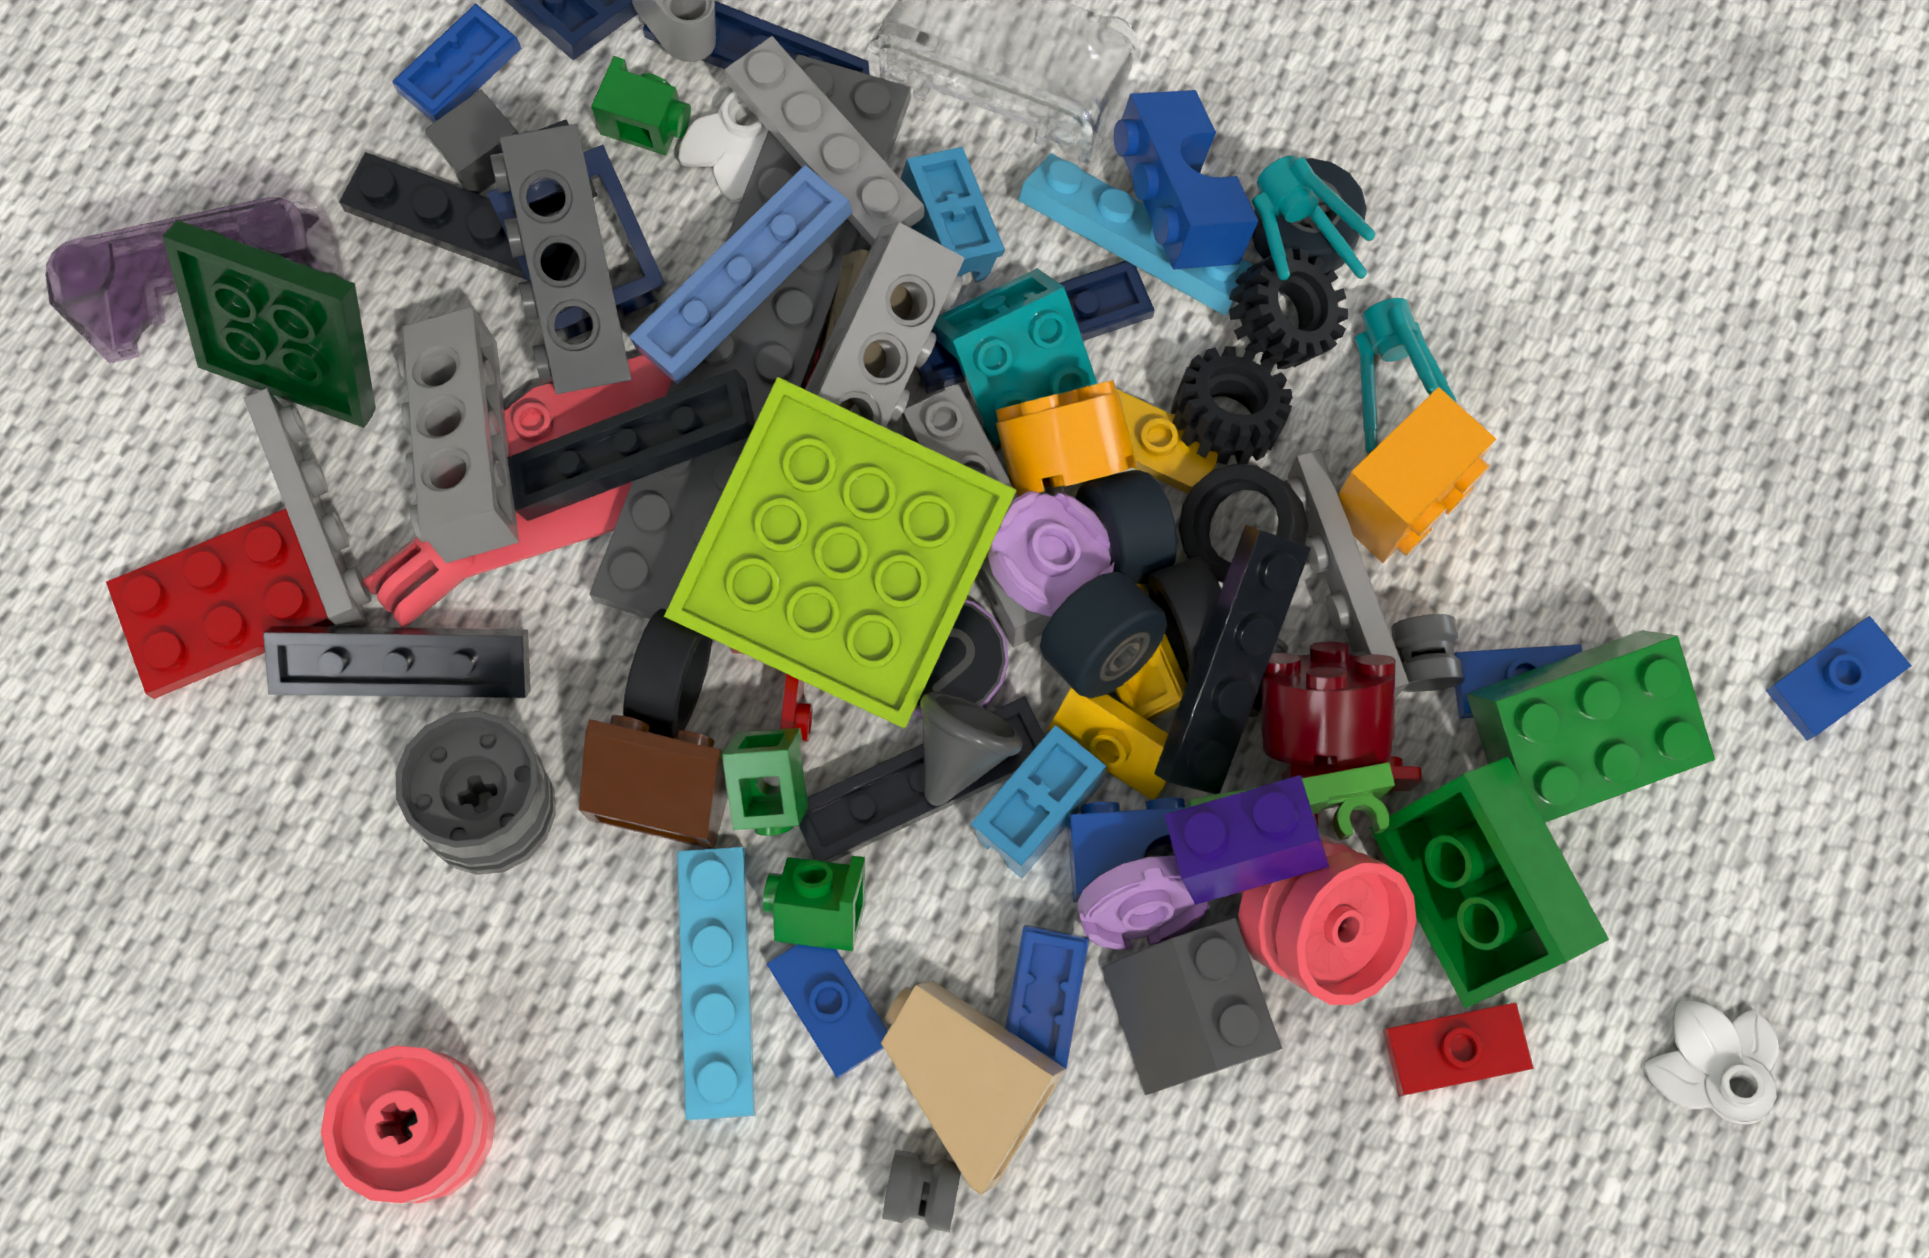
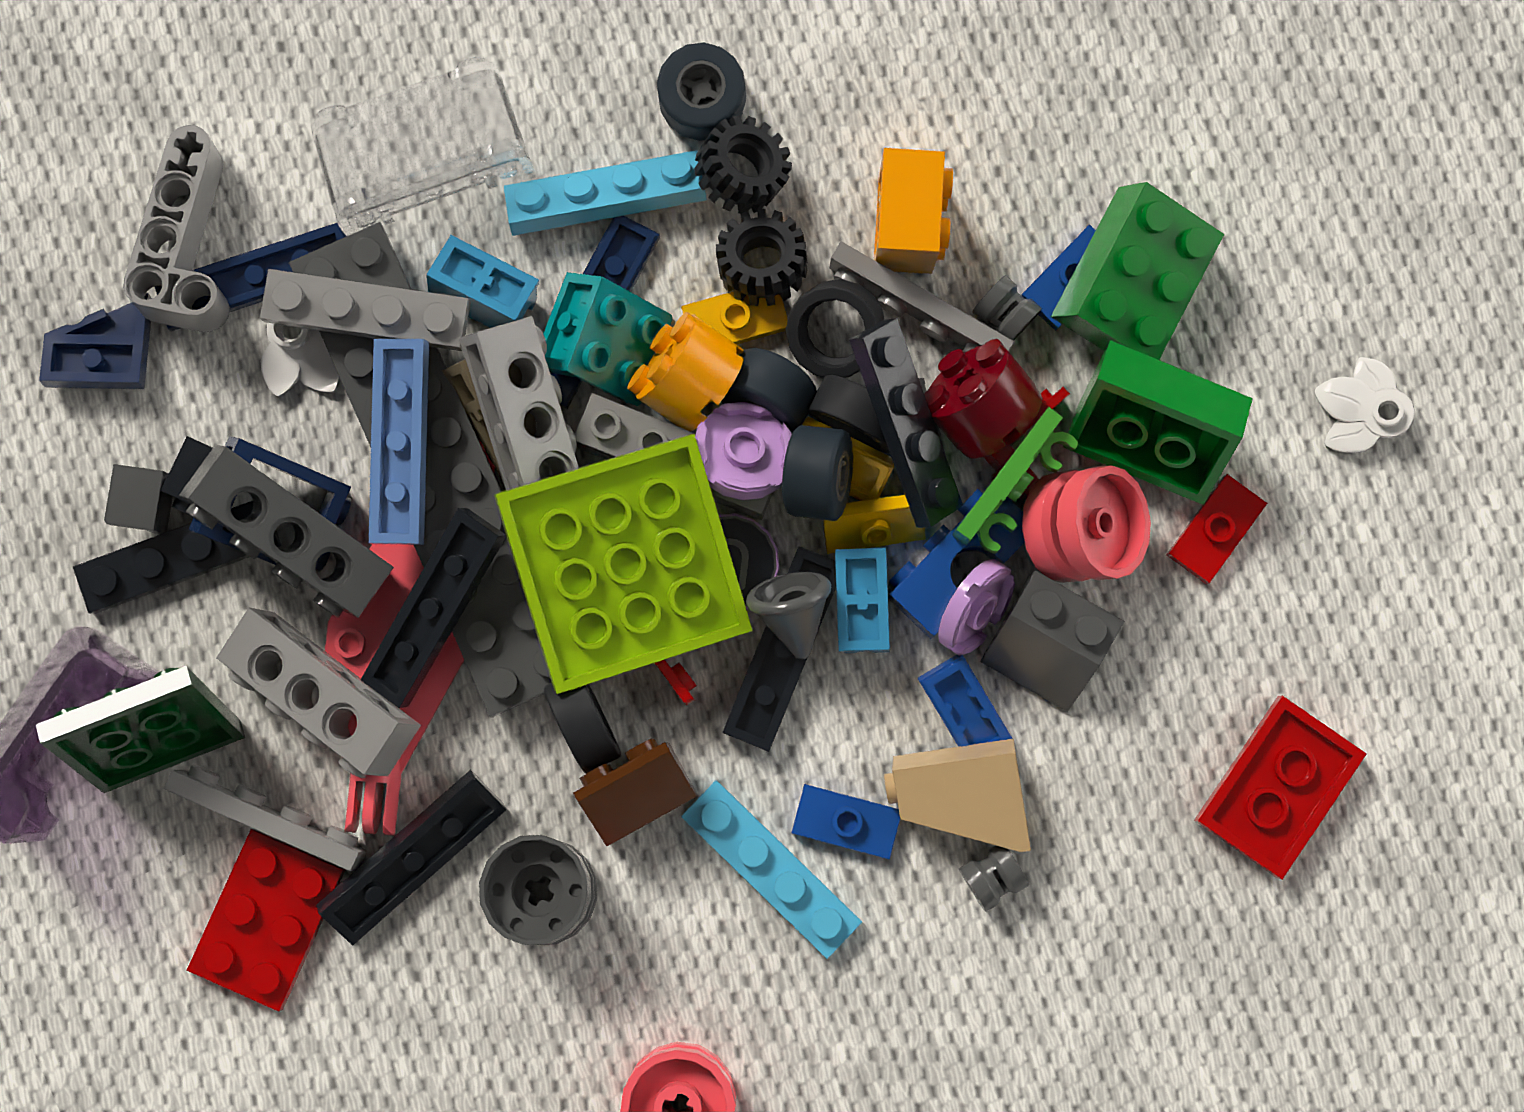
camera: 40 degrees left, 10 degrees up
(457, 64) = (72, 457): blue plate -> none
(639, 109) = (221, 384): green brick -> none
(753, 801) = (699, 732): green brick -> none
(817, 902) = (790, 773): green brick -> none
(1192, 214) = (636, 158): blue arch -> none
(1246, 840) = (1011, 527): dark purple brick -> none
(1290, 192) = (687, 92): teal plant -> none
(1394, 336) = (818, 122): teal plant -> none
(1838, 678) = (1251, 113): blue plate -> none

